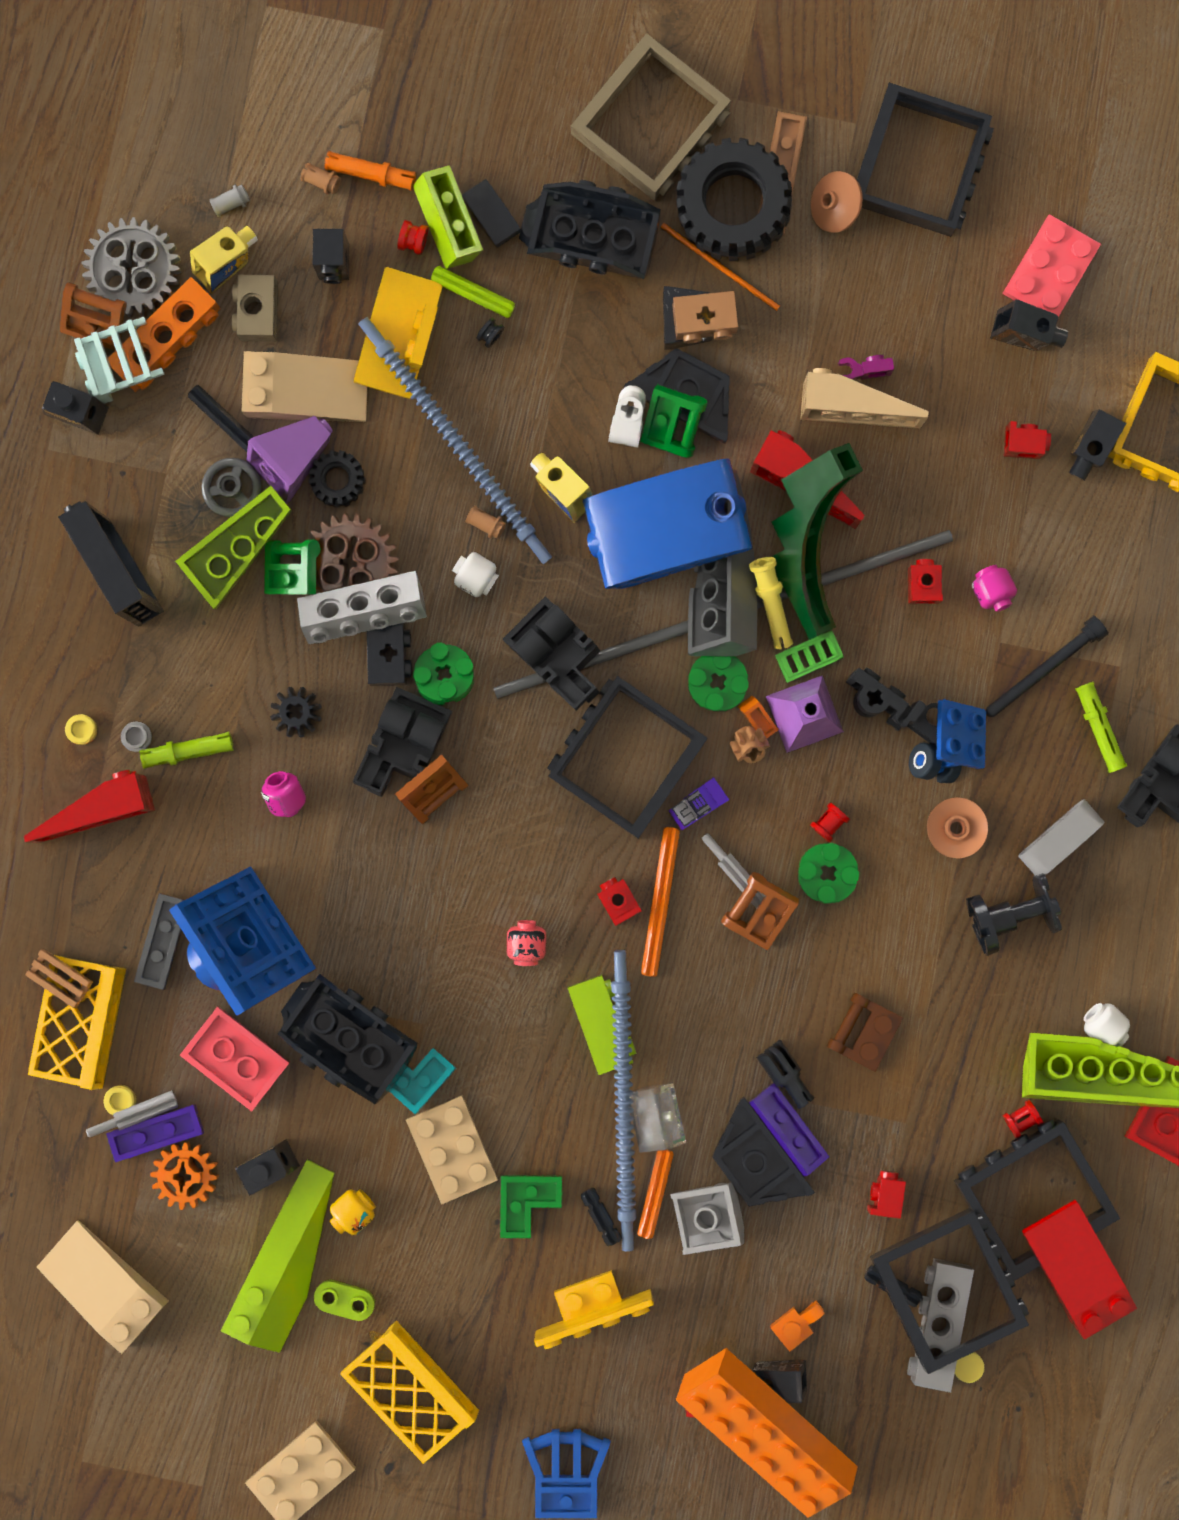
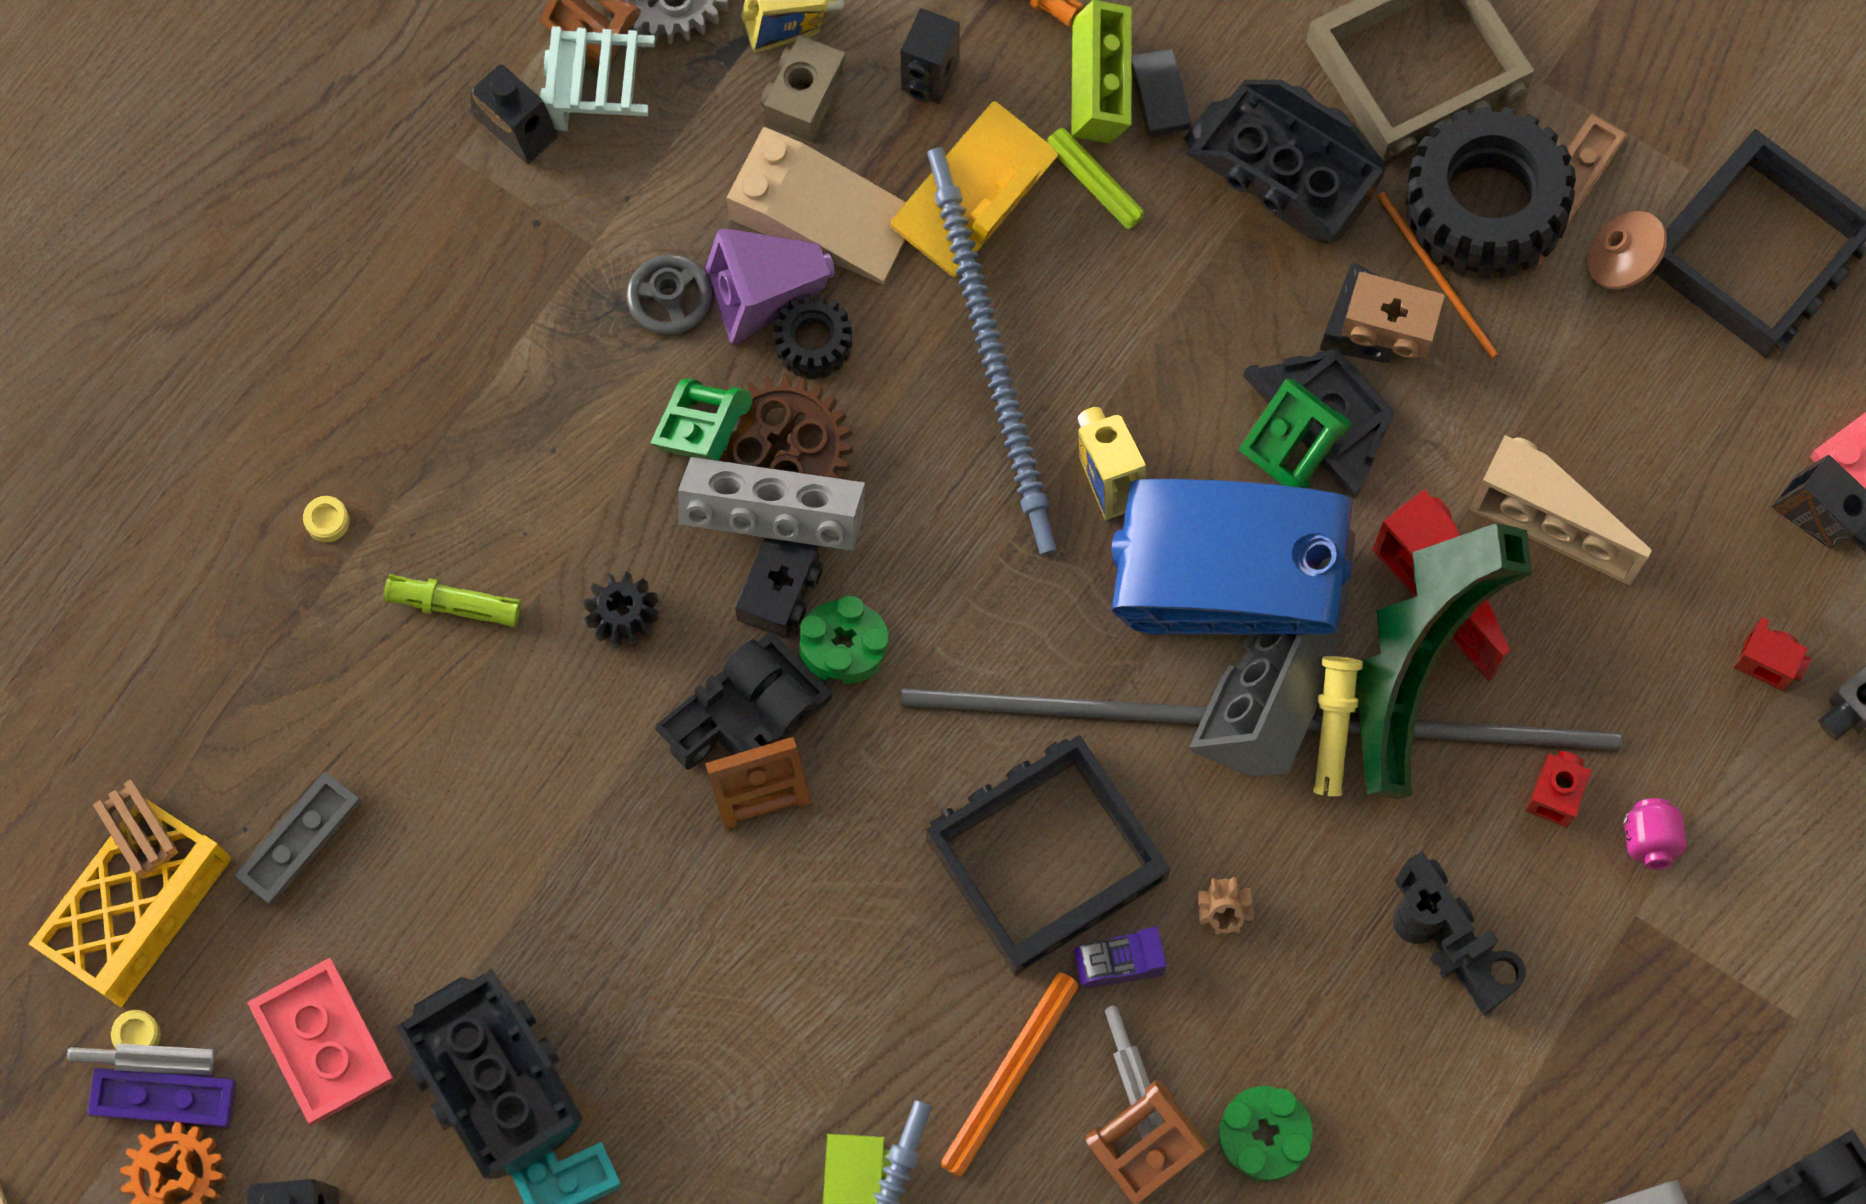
camera: 20 degrees right, 15 degrees down
(109, 802) = (300, 621): red slope -> none
(110, 563) = (466, 310): black window -> none
(136, 736) = (394, 556): light grey plate -> none
(167, 318) = (681, 55): orange brick -> none
(220, 416) = (694, 197): black axle -> none
(230, 549) = (638, 362): lime wedge -> none
(240, 941) = (403, 872): blue piece -> none
(283, 794) = (554, 708): dark pink head -> none
(413, 237) = (1045, 81): red wheel -> none
(475, 574) = (942, 529): white head -> none
(489, 524) = (986, 469): medium nougat pin -> none
(490, 332) = (1096, 235): black bush -> none
(526, 943) = (796, 1050): coral head -> none
(555, 651) = (1009, 671): black plate -> none
(627, 421) = (1232, 416): white piece -> none
(627, 909) = (951, 1063): red brick -> none
(714, 698) = (1202, 826): green plate -> none
(757, 716) = (1252, 873): orange piece -> none
(794, 724) = (1319, 900): medium lavender slope -> none
(830, 822) = (1296, 1061): red bush -> none
(833, 646) = (1375, 806): bright green slope -> none
(873, 367) = (1595, 476): magenta plate -> none
(959, 744) = (1524, 1022): blue plate -> none
(972, 822) = (1493, 1128): nougat dish -> none
(1092, 631) = (1774, 950): black piece -> none
(1105, 738) = (1738, 1088): lime pin -> none

